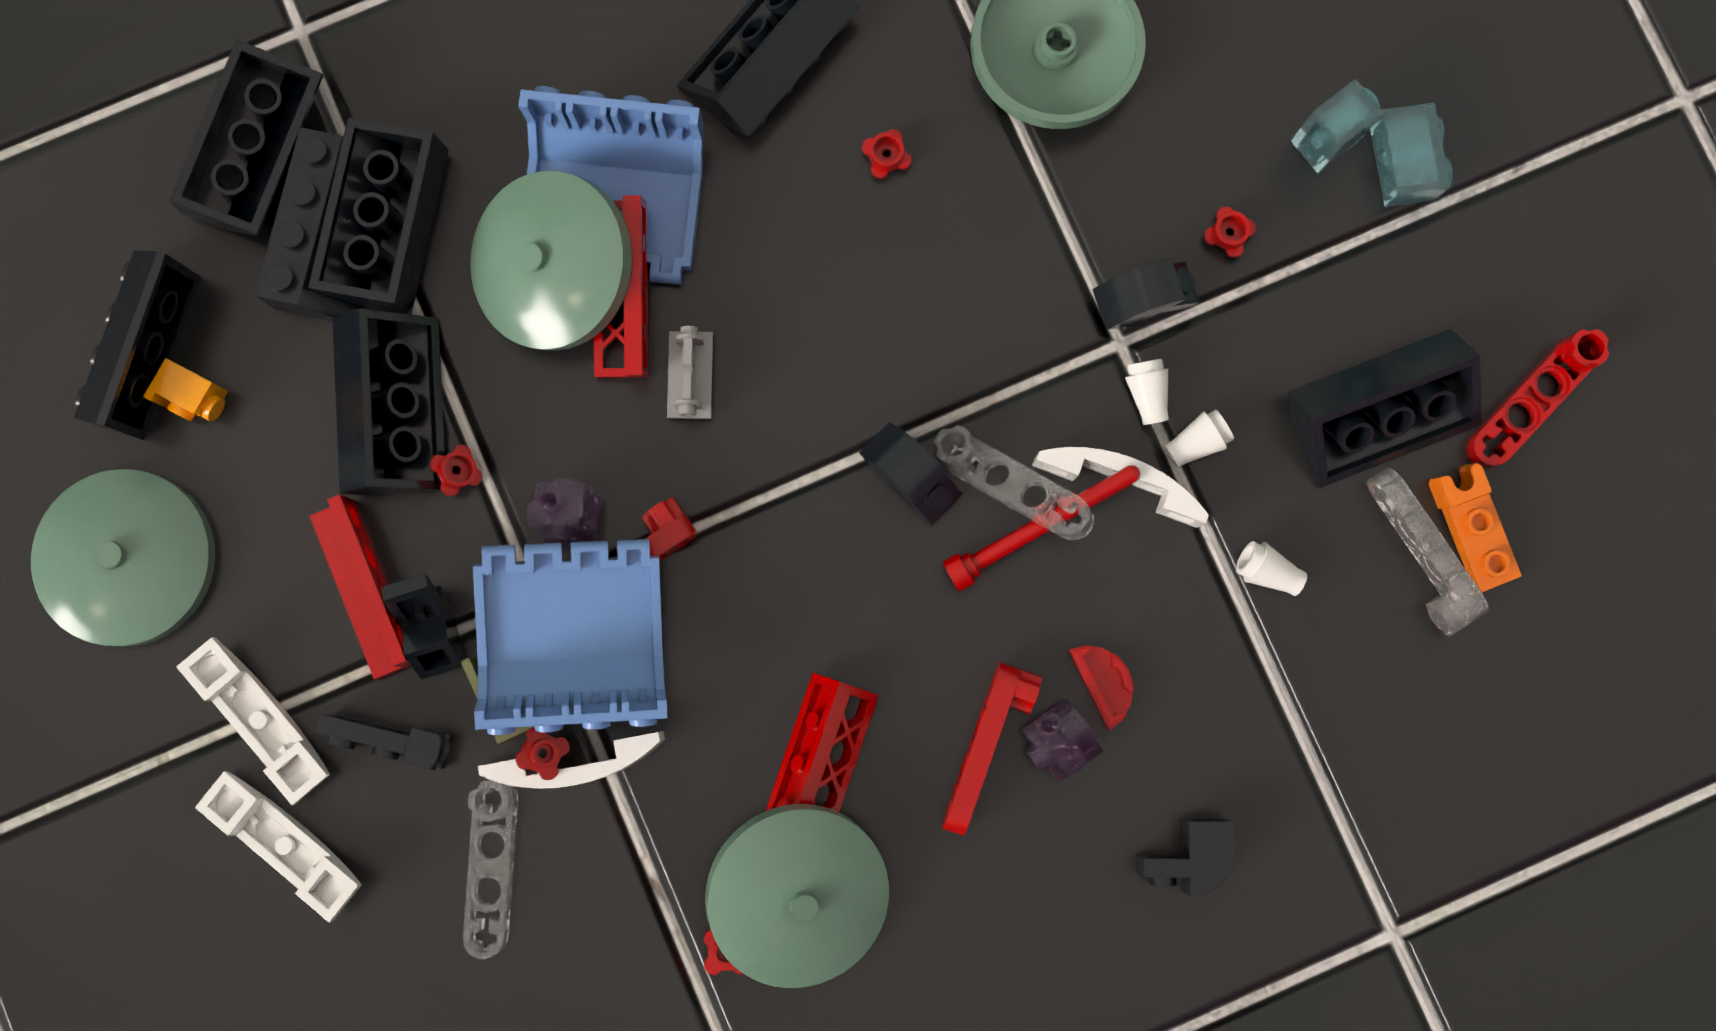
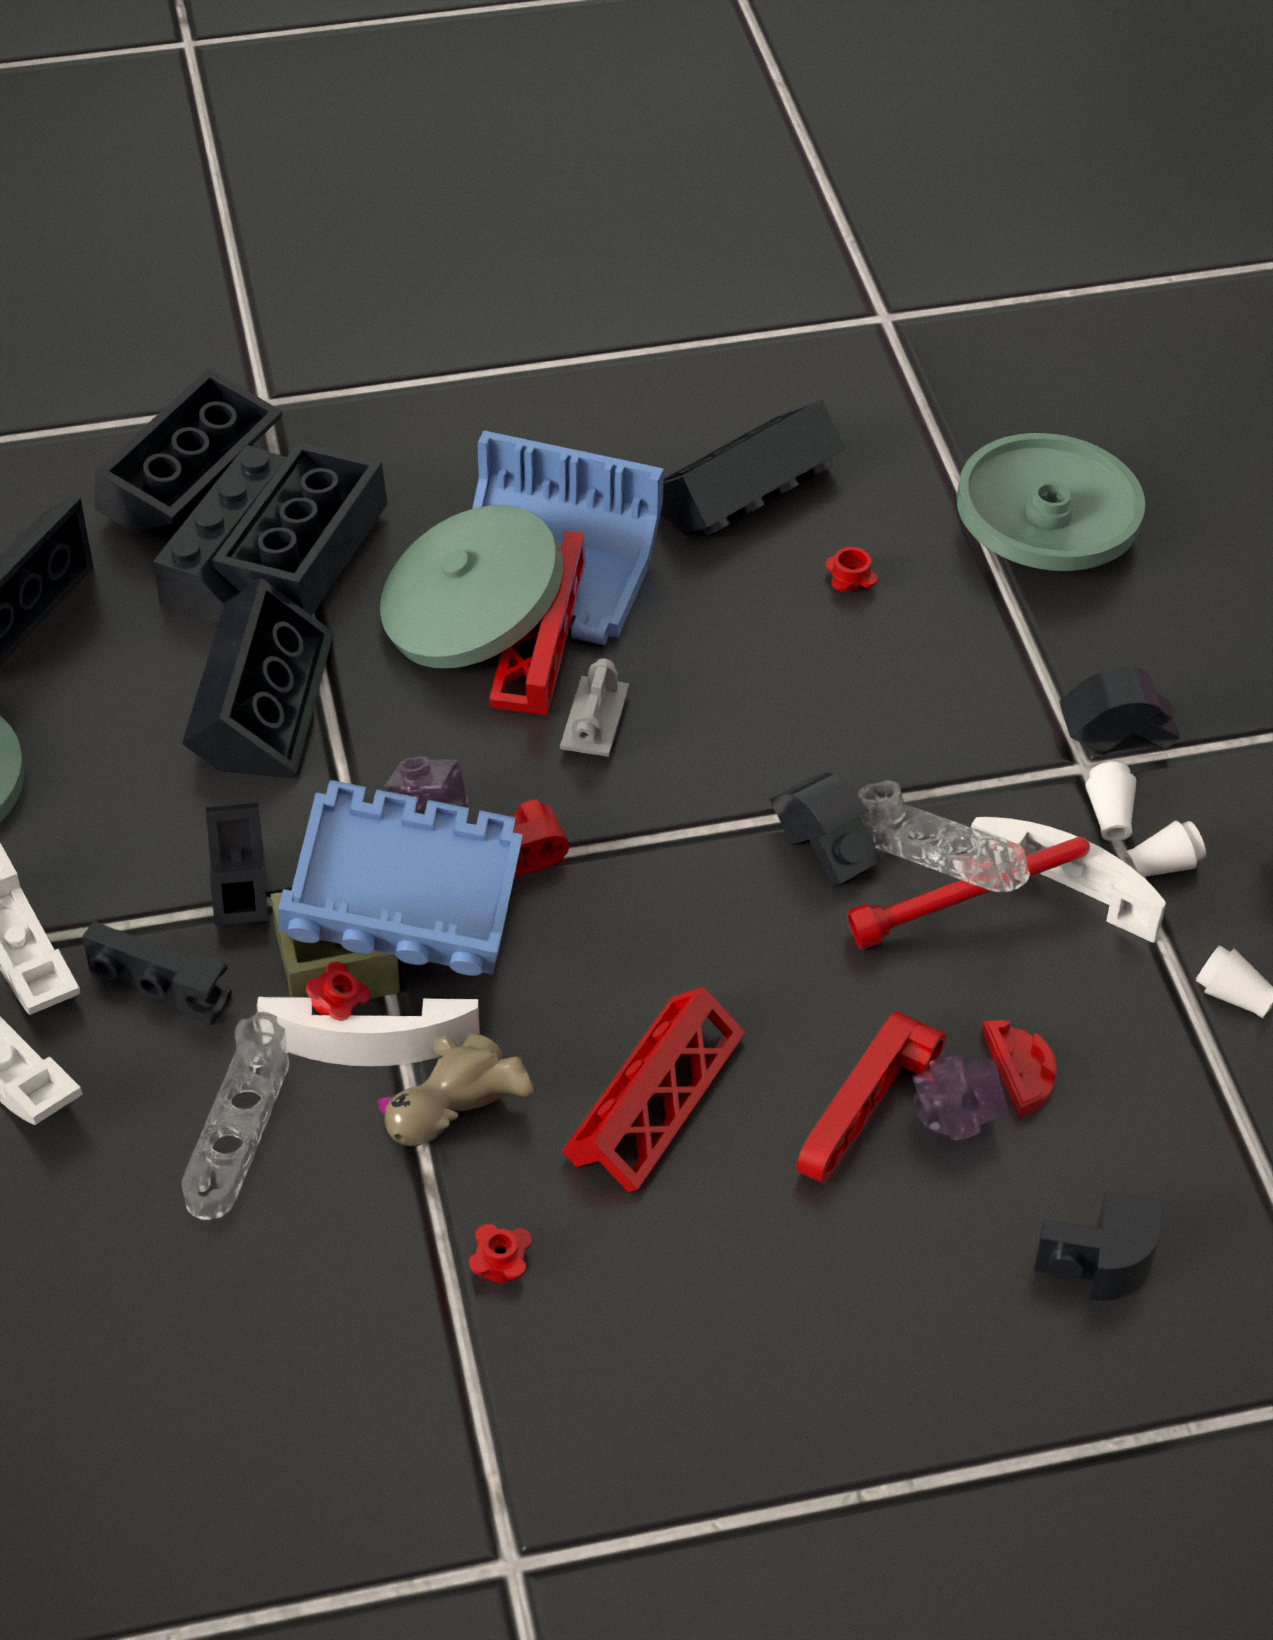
camera: 10 degrees right, 35 degrees down
(186, 392) = (46, 641): light orange brick -> none
(360, 584) = (177, 840): red fence -> none
(464, 461) = (314, 751): red plate -> none
(659, 802) = (461, 1081): none -> dark tan animal
(796, 896) = (604, 1193): sand green dish -> none
(1234, 220) = (1222, 684): red plate -> none

